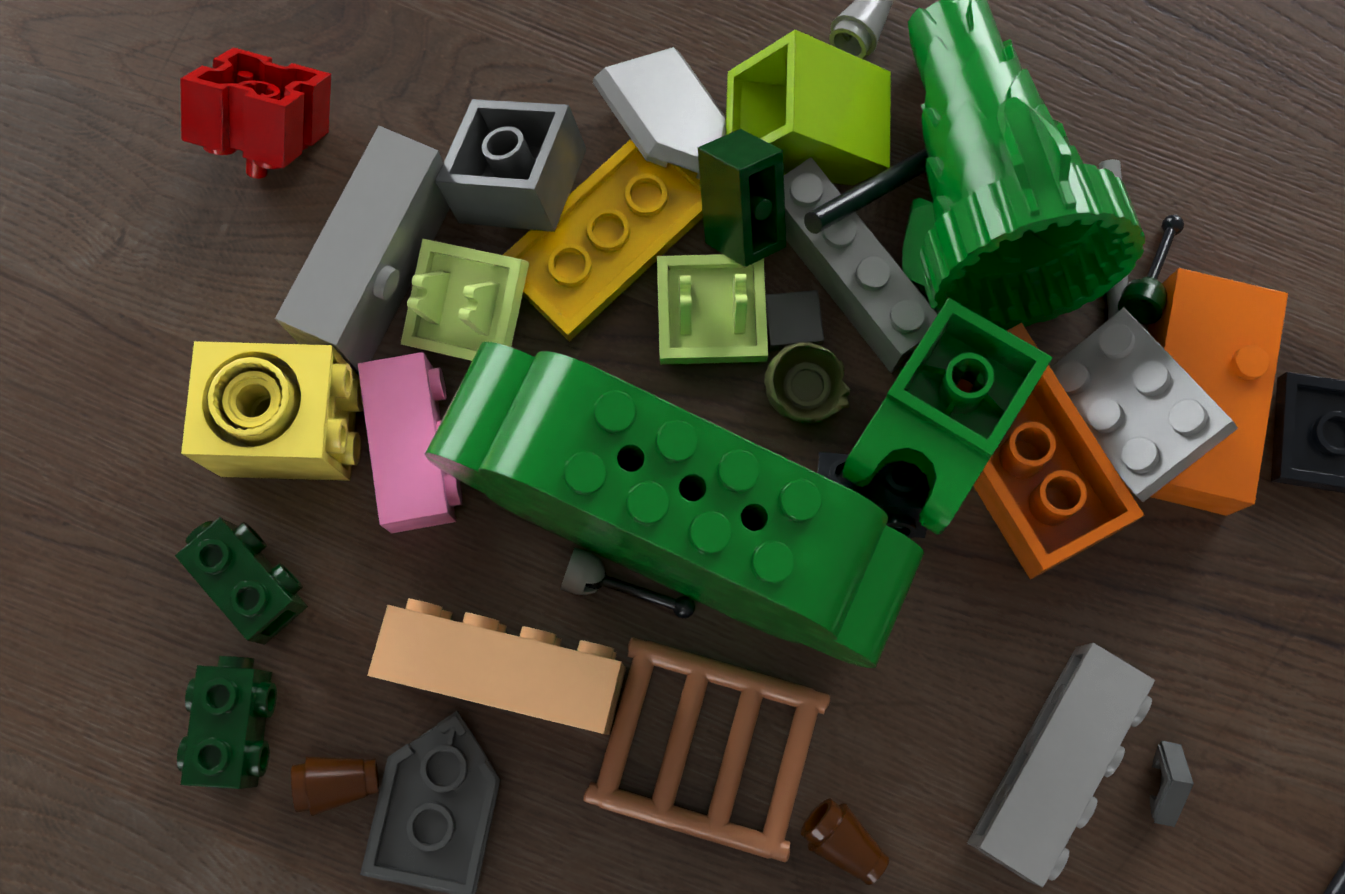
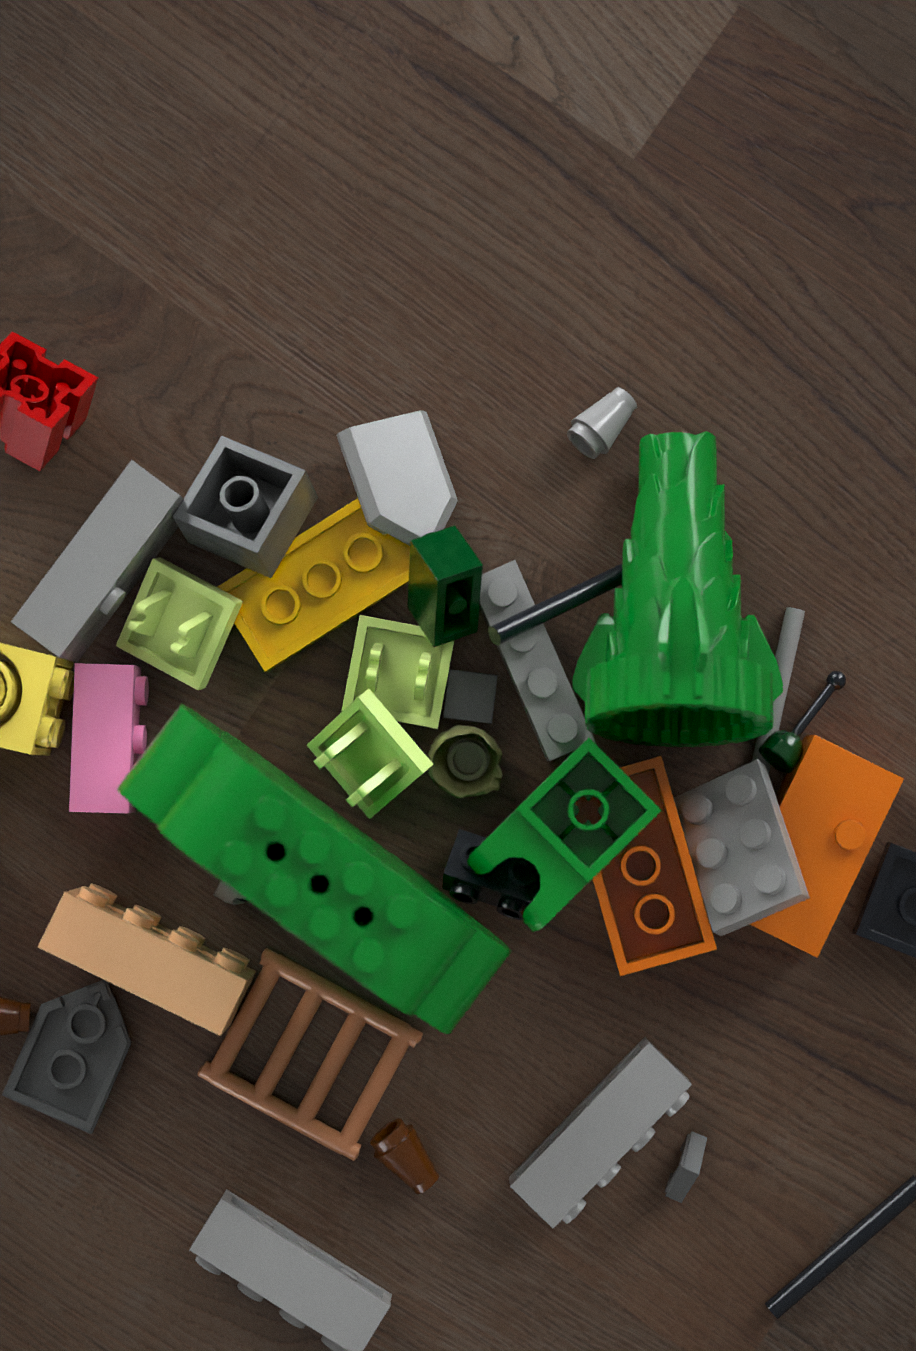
camera: 10 degrees right, 10 degrees up
(707, 379) = (369, 754): none -> yellowish green plate
(814, 106) = (528, 511): lime slope -> none

